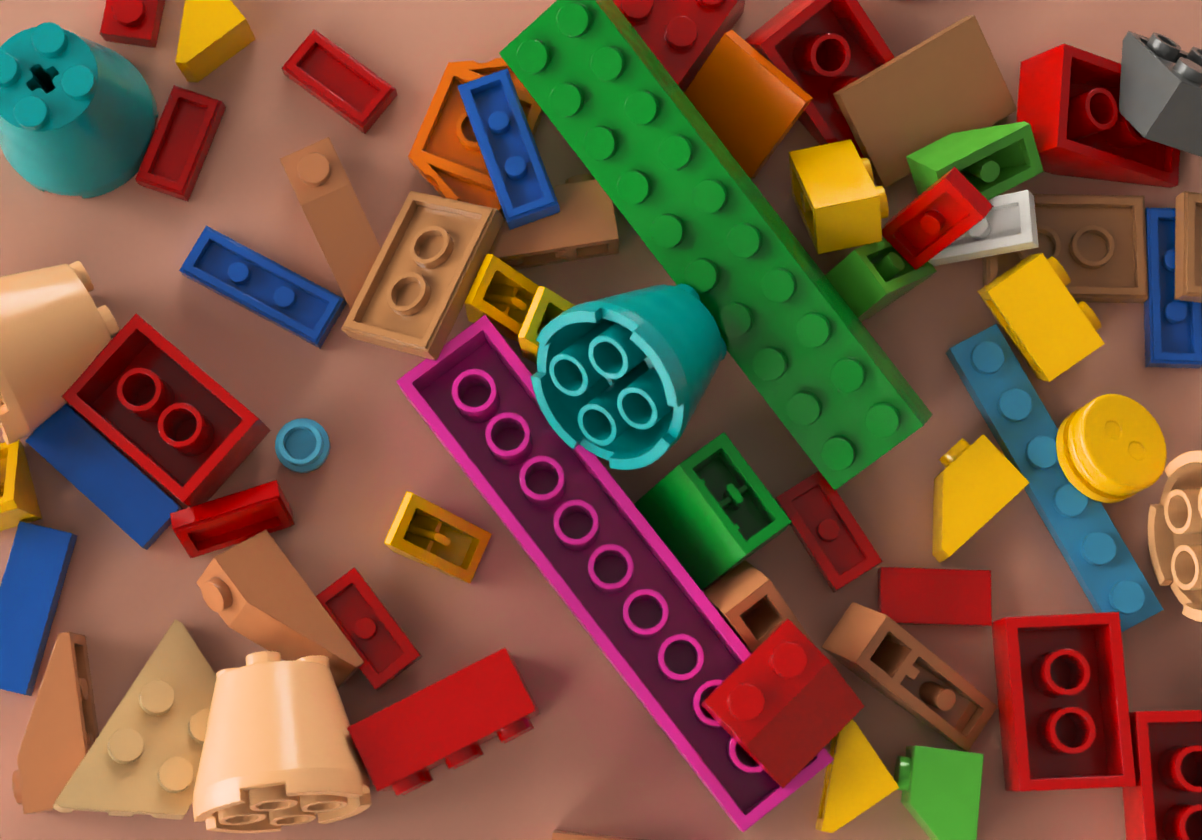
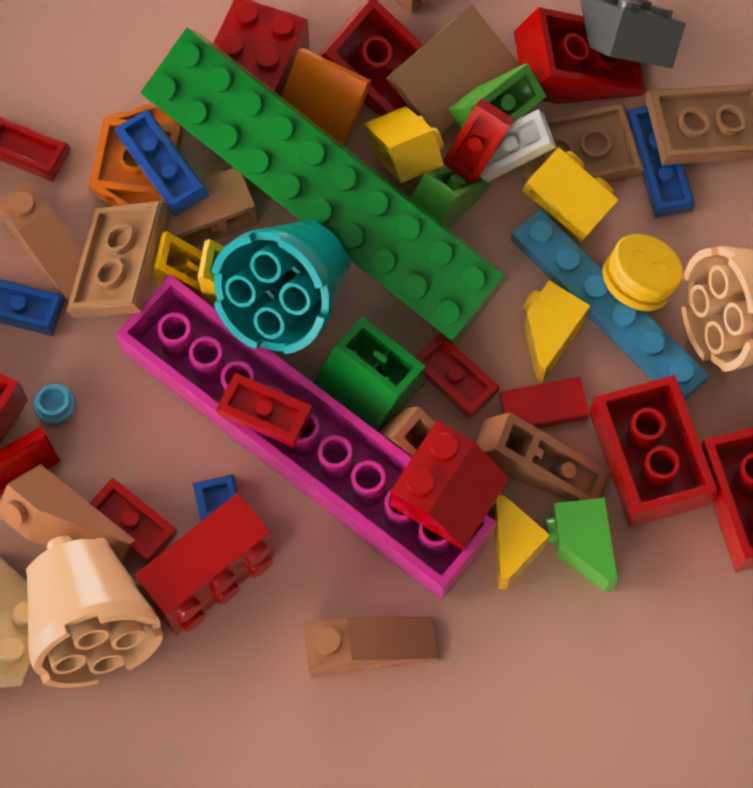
camera: 15 degrees left, 10 degrees down
(437, 538) = (168, 444): slope -> none
(482, 624) = (213, 494): none -> blue tile
(565, 538) = (264, 410): none -> red plate

